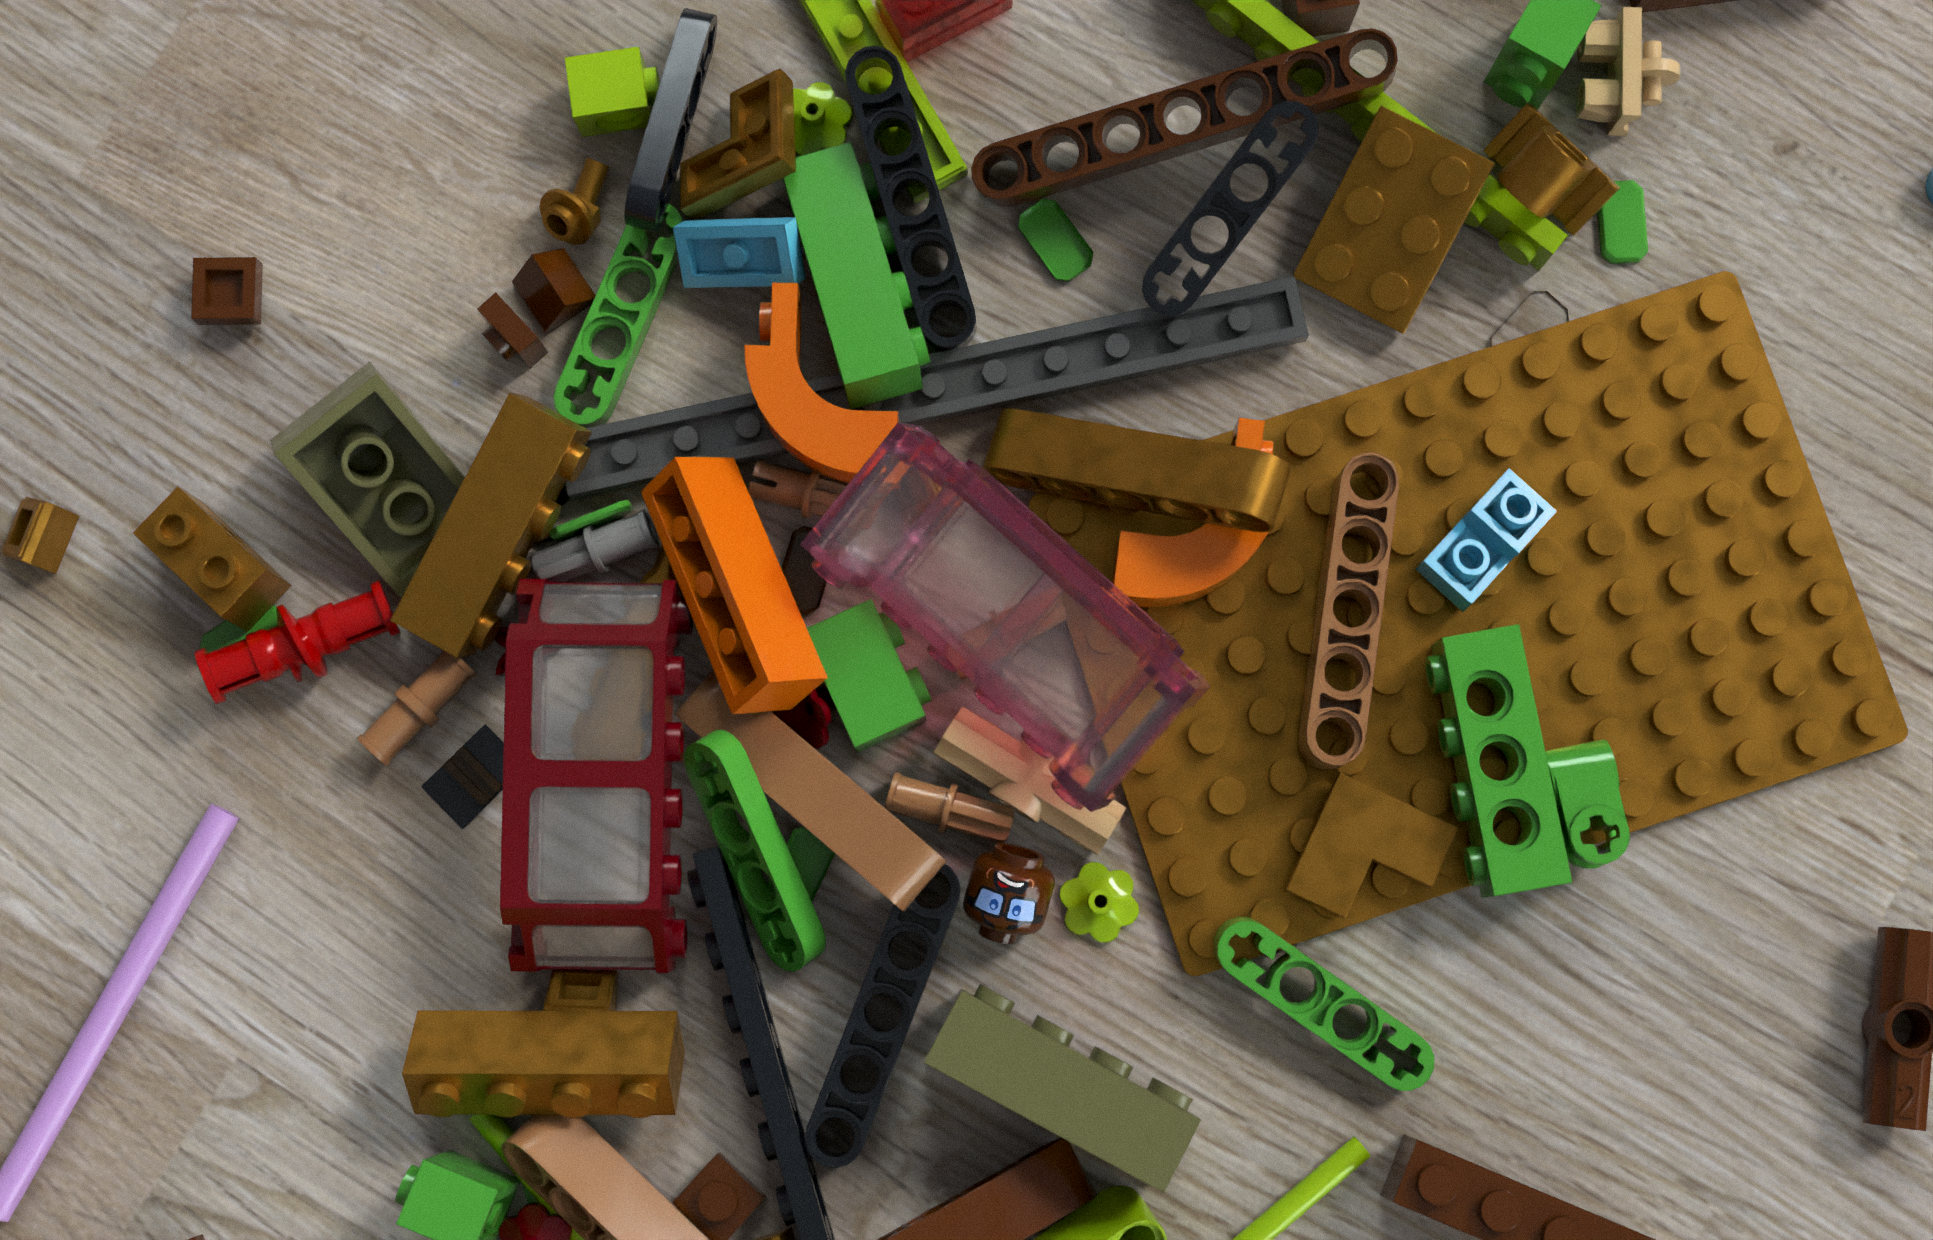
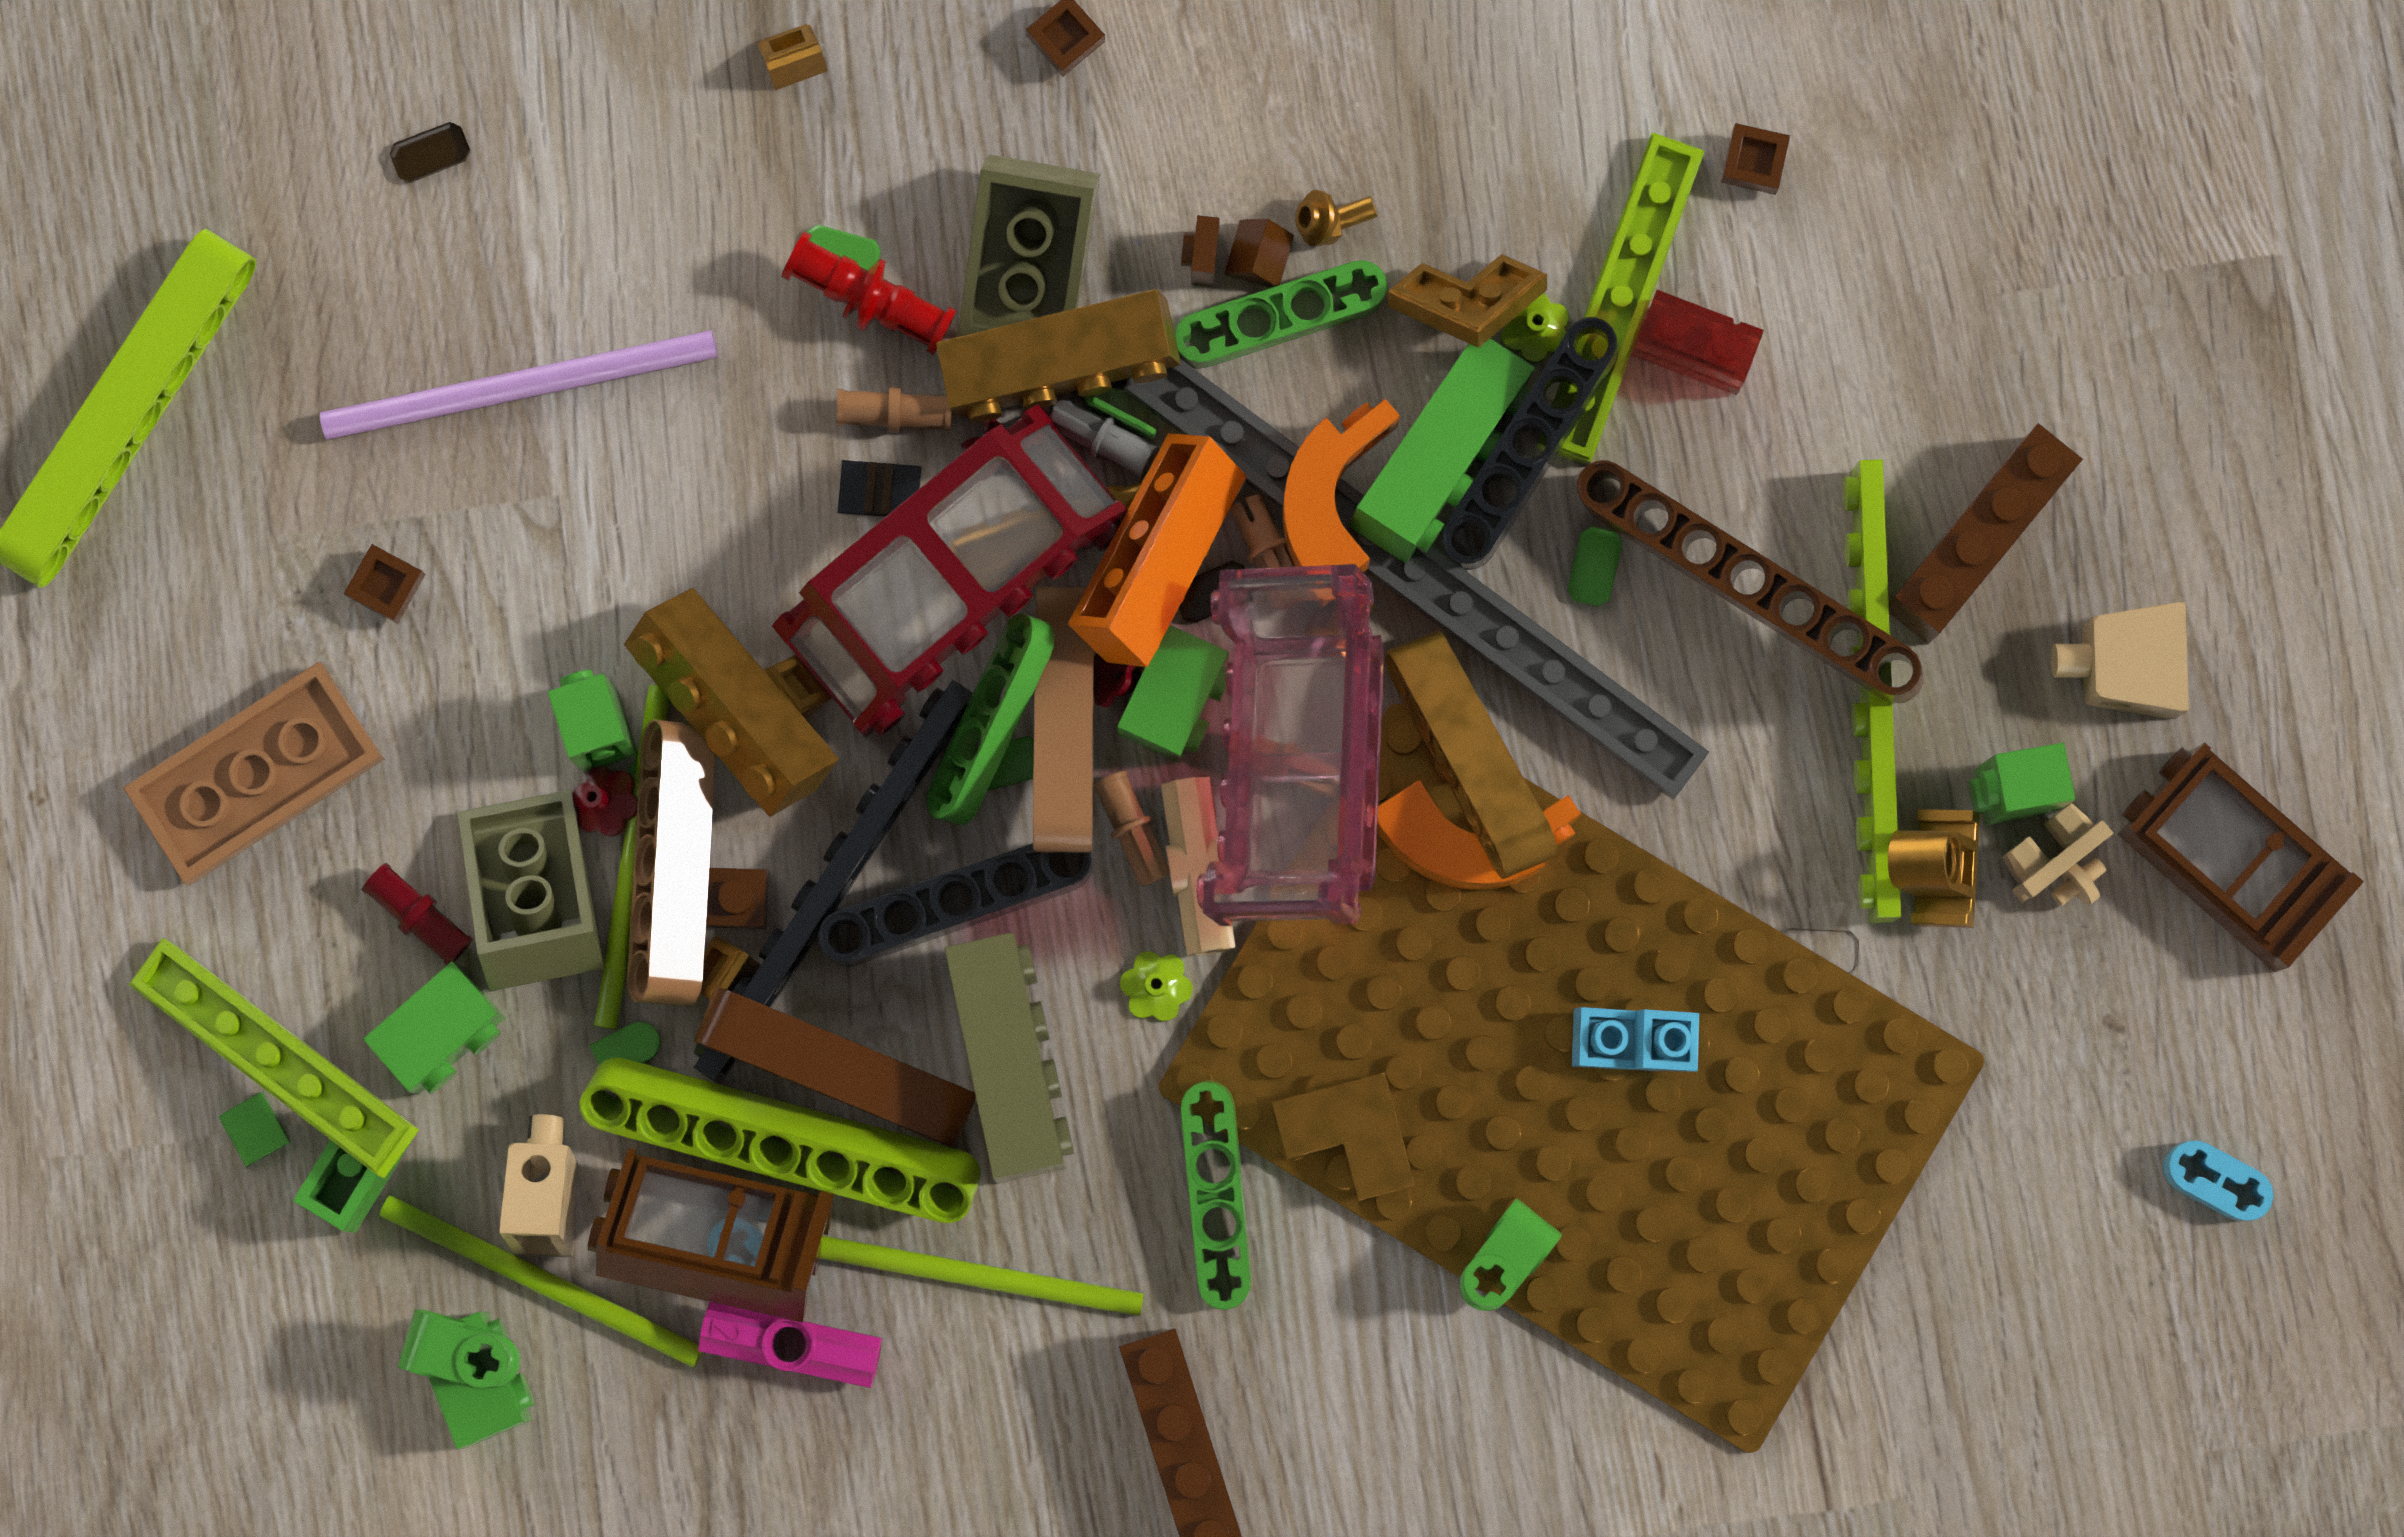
camera: 45 degrees right, 0 degrees up
(212, 559) = (875, 188): pearl gold brick -> none
(611, 91) = (1431, 173): lime brick -> none
(670, 120) = (1445, 230): black beam -> none
(739, 252) = (1391, 357): medium azure plate -> none
(1008, 892) = (1108, 916): reddish brown head -> none
(1235, 213) = (1709, 660): black beam -> none
(1367, 586) = (1521, 964): medium nougat beam -> none
(1393, 219) = (1808, 786): pearl gold plate -> none
(1500, 663) = (1553, 1114): bright green brick -> none
(1623, 225) = (1954, 954): bright green piece -> none

